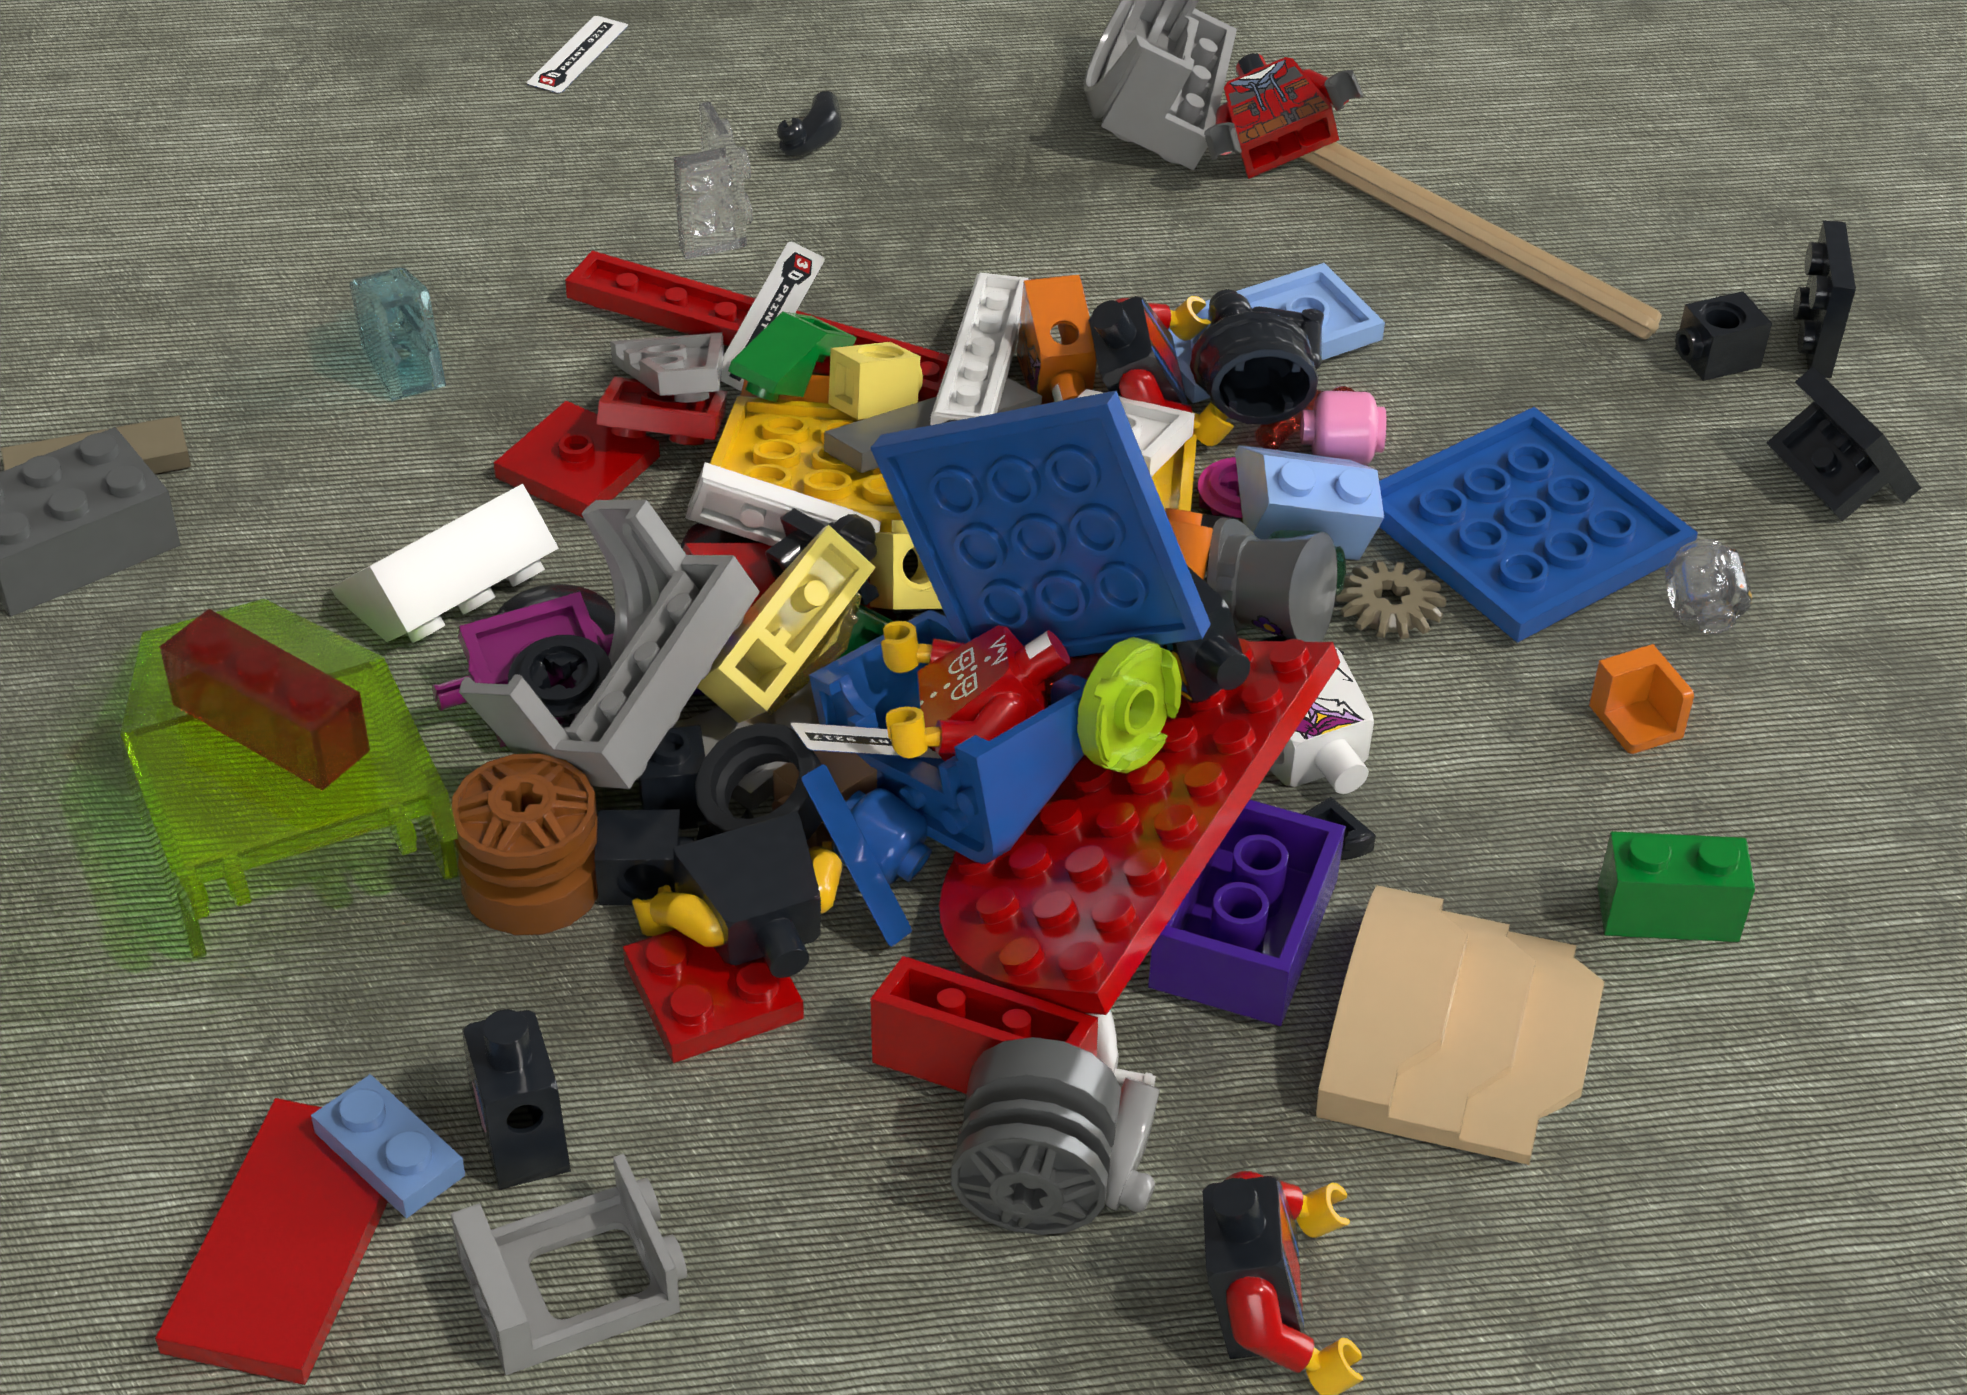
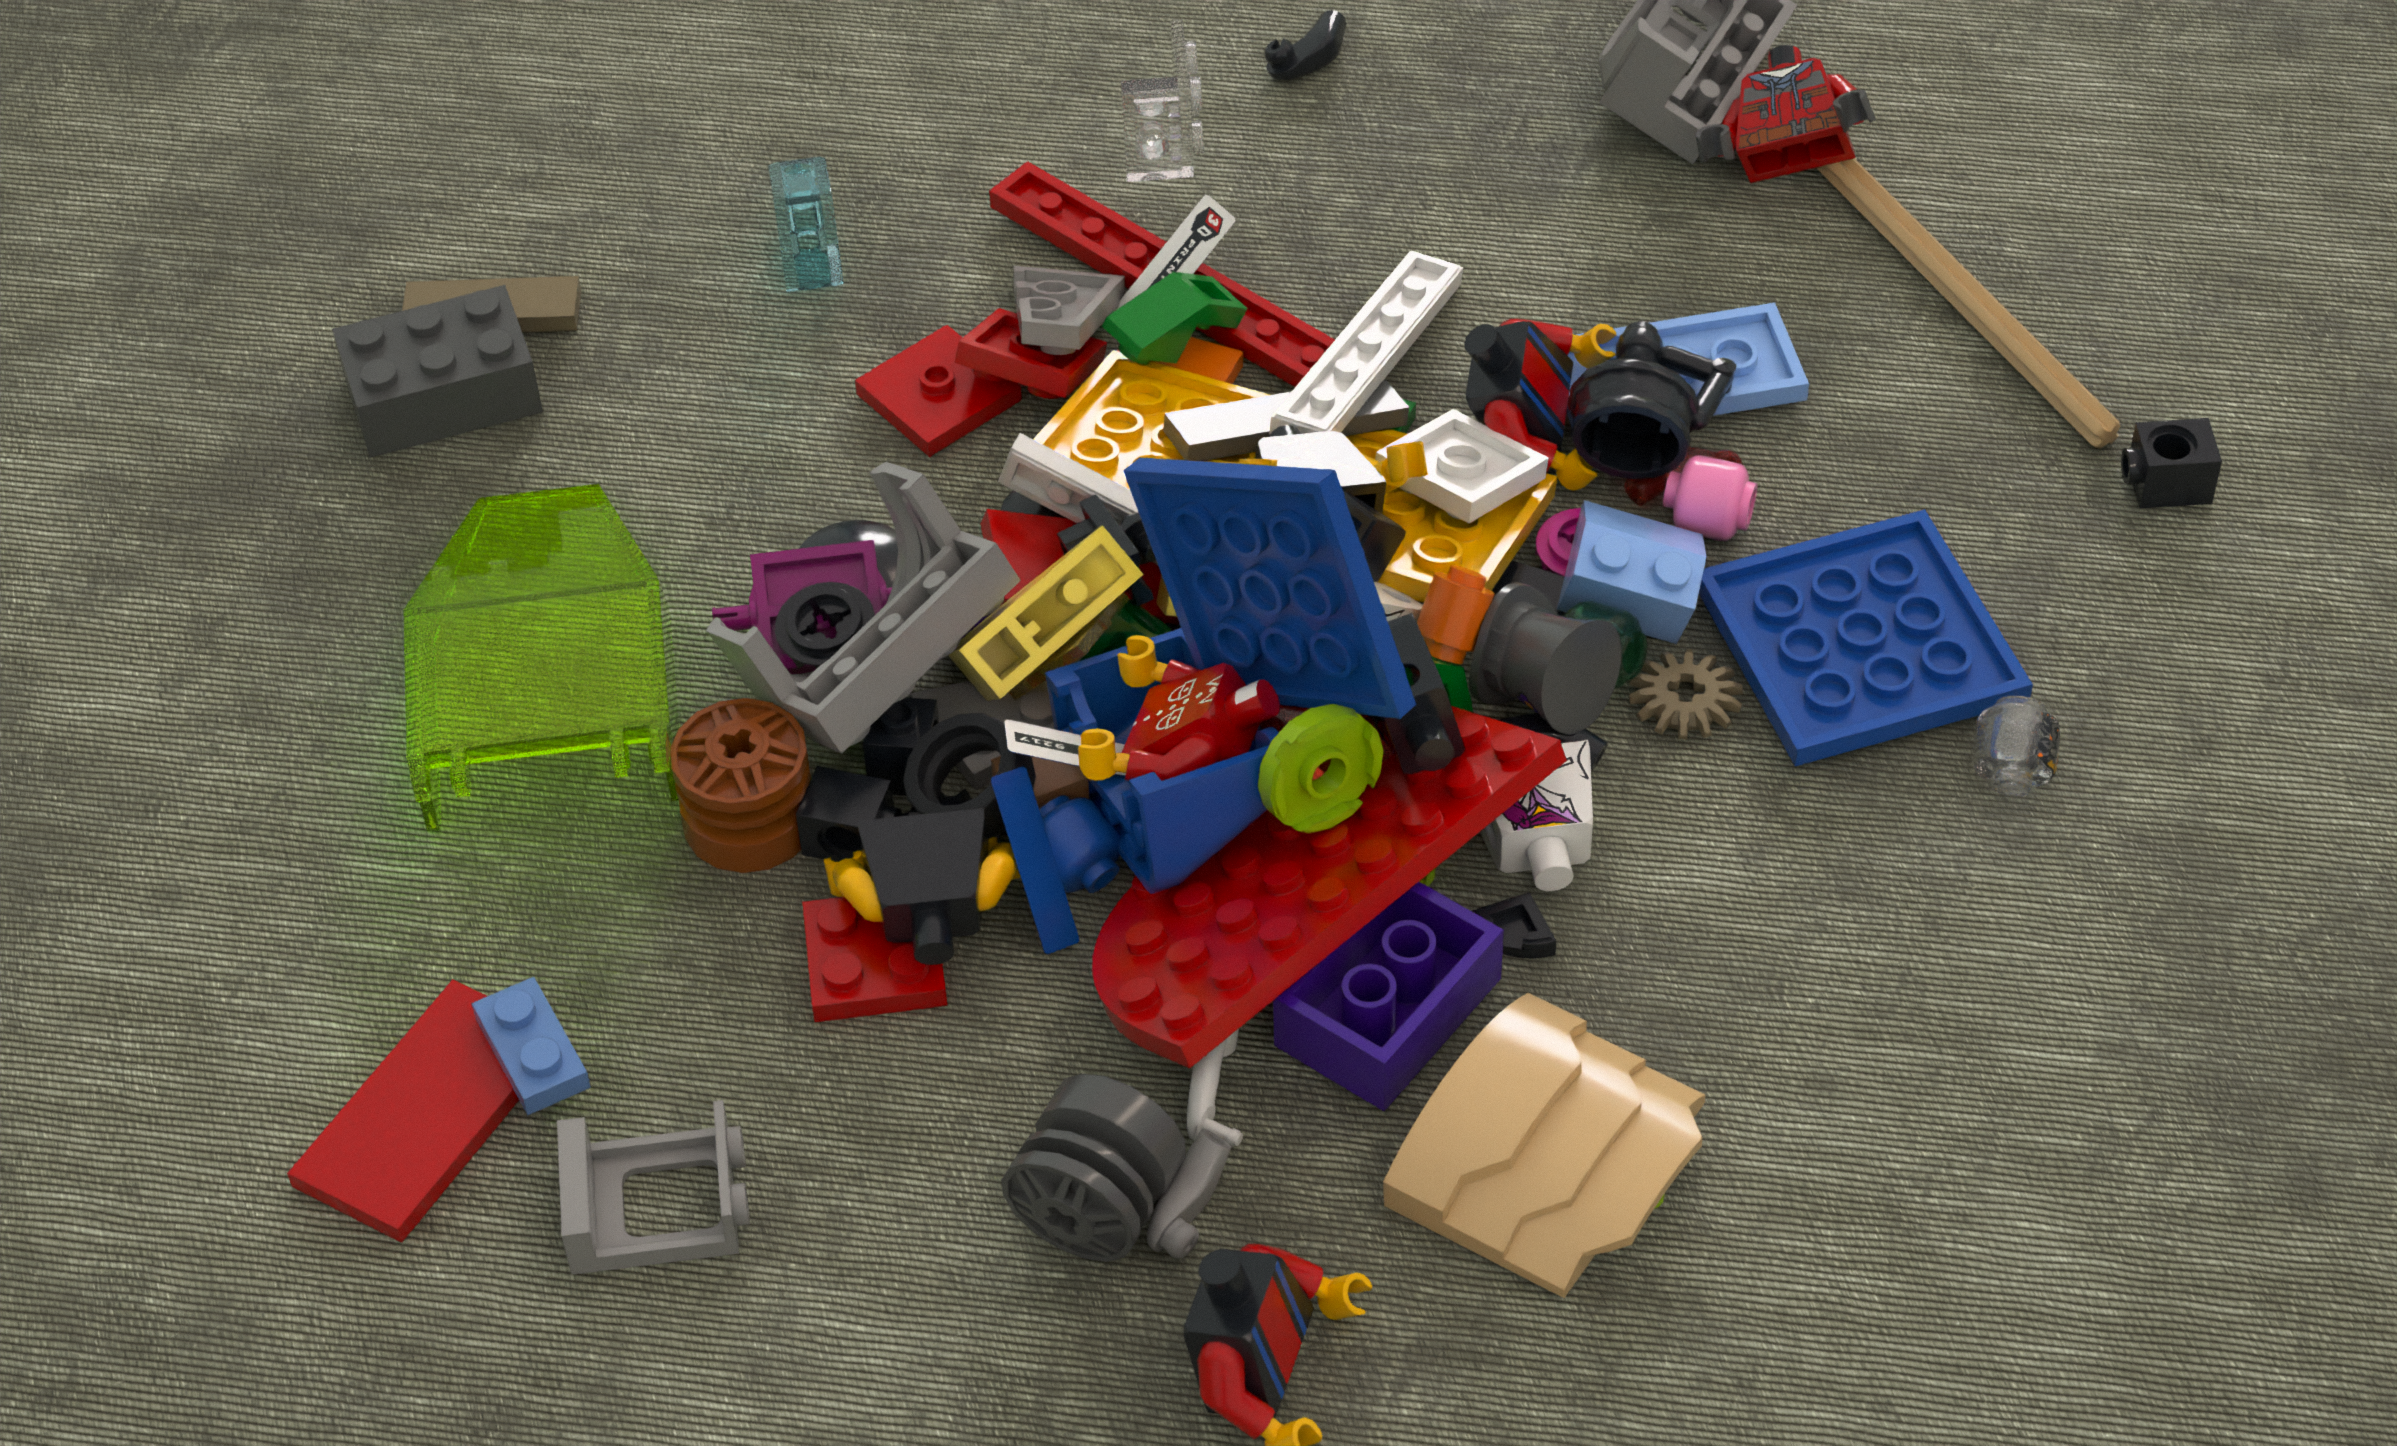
camera: 20 degrees right, 5 degrees up
(265, 699) = (530, 604): clear red brick -> none
(450, 568) = (774, 487): white slope -> none
(509, 1070) = (655, 1001): black torso -> none
(873, 379) = (1245, 360): light yellow brick -> none
(942, 1022) = (1048, 1034): red brick -> none
(1048, 367) = (1444, 368): orange torso -> none
(1641, 699) = (1887, 854): orange panel -> none
(1675, 886) = (1824, 1057): green brick -> none
(1827, 297) = (2294, 442): black plate -> none
(1839, 450) = (2235, 621): black bracket -> none

